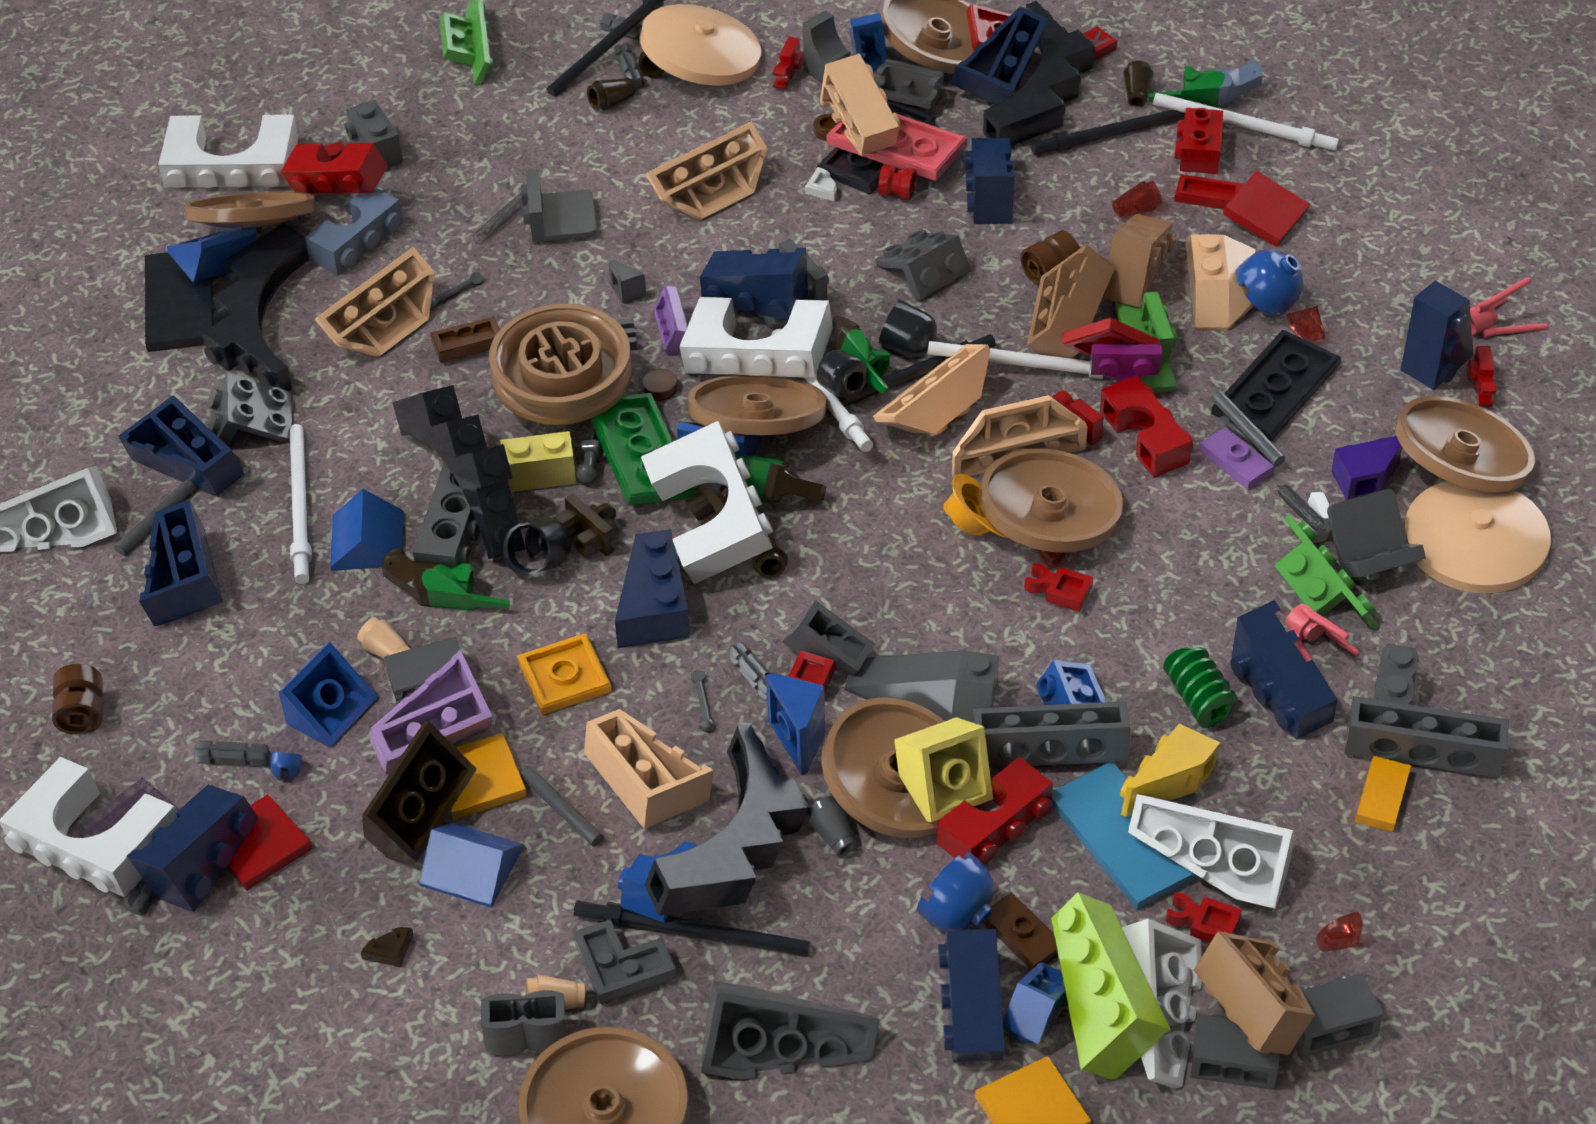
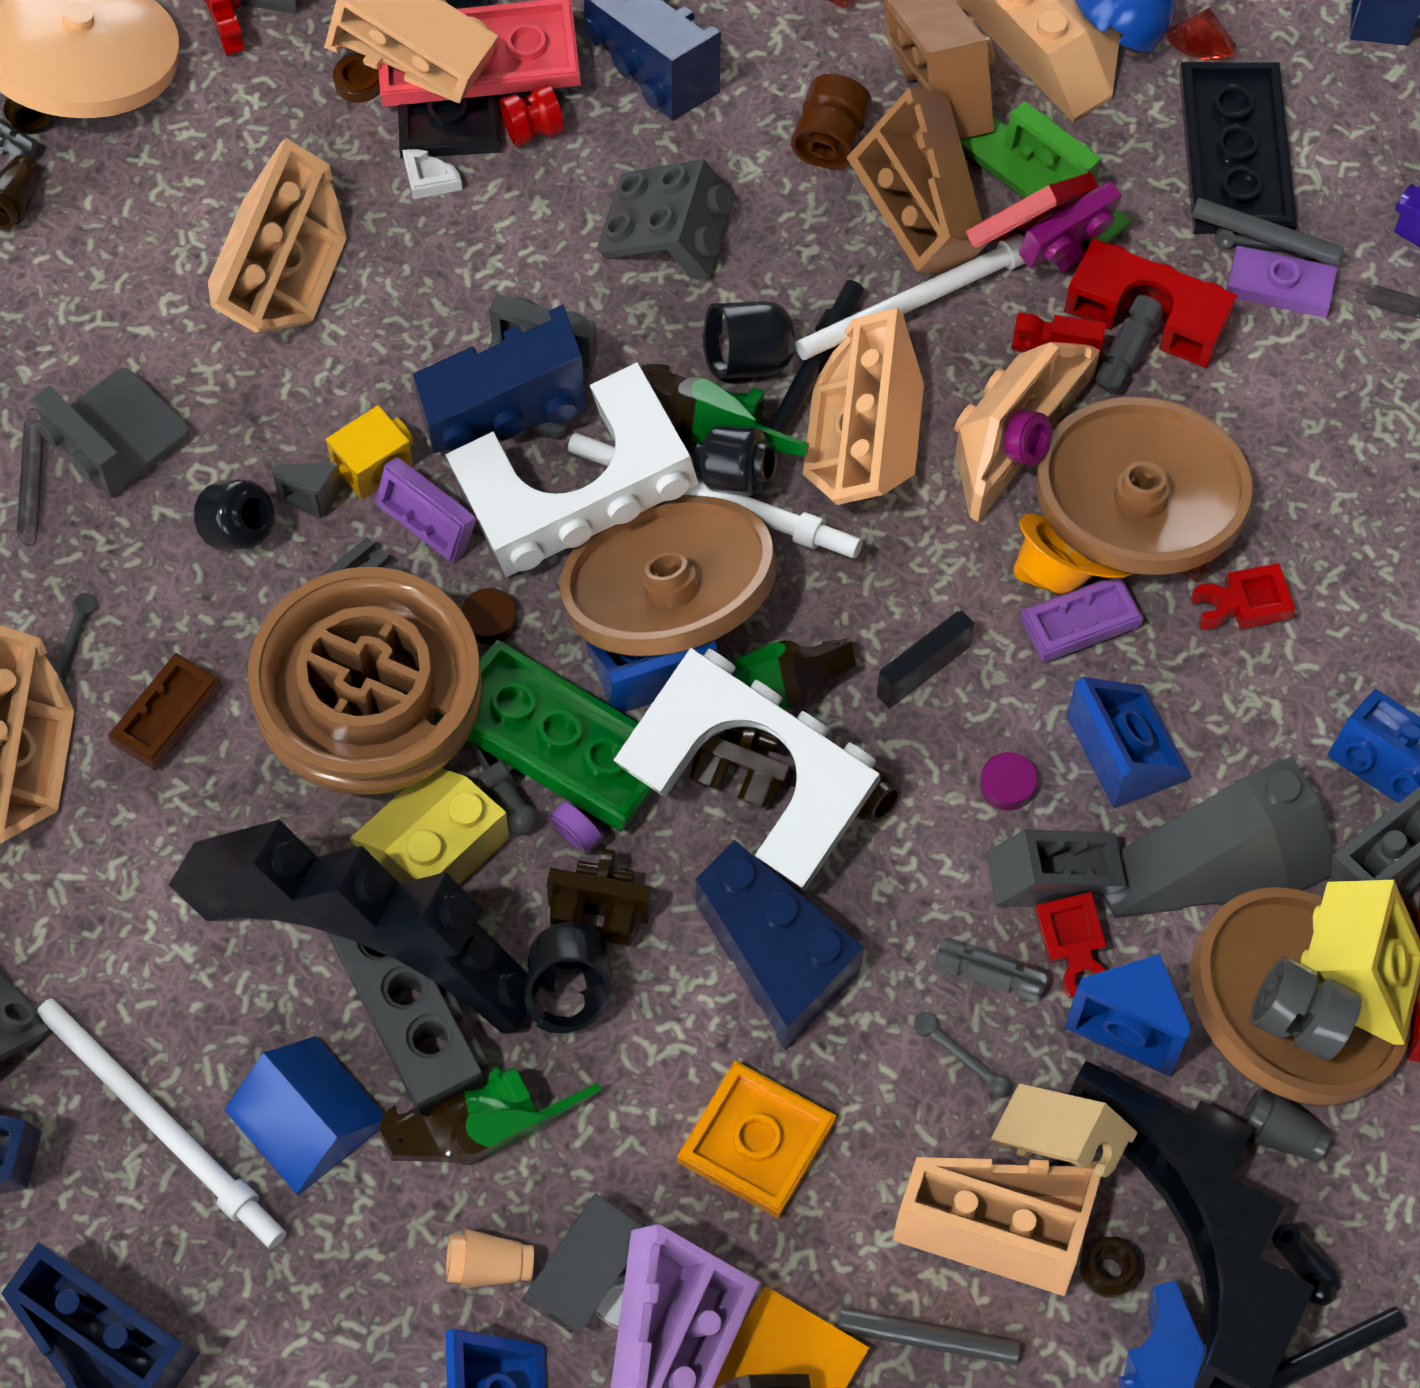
camera: 40 degrees left, 15 degrees up
(586, 276) = (234, 515): none -> black head
(607, 490) = (575, 827): none -> medium lavender tile
(671, 273) = (366, 447): none -> yellow brick
(680, 822) = (1115, 1250): none -> dark brown plate
(706, 742) = (1063, 1128): none -> tan hinge
(784, 889) = (1307, 1263): none -> black arm
(848, 597) = (1008, 781): none -> magenta tile
(856, 516) = (925, 658): none -> black tile
(879, 759) = (1311, 1011): none -> dark grey wheel
(927, 609) = (1124, 739): none -> blue slope
(960, 546) = (1081, 618): none -> medium lavender plate
(1001, 438) = (1028, 437): none -> magenta tile
(1113, 437) = (1129, 344): none -> dark grey axle

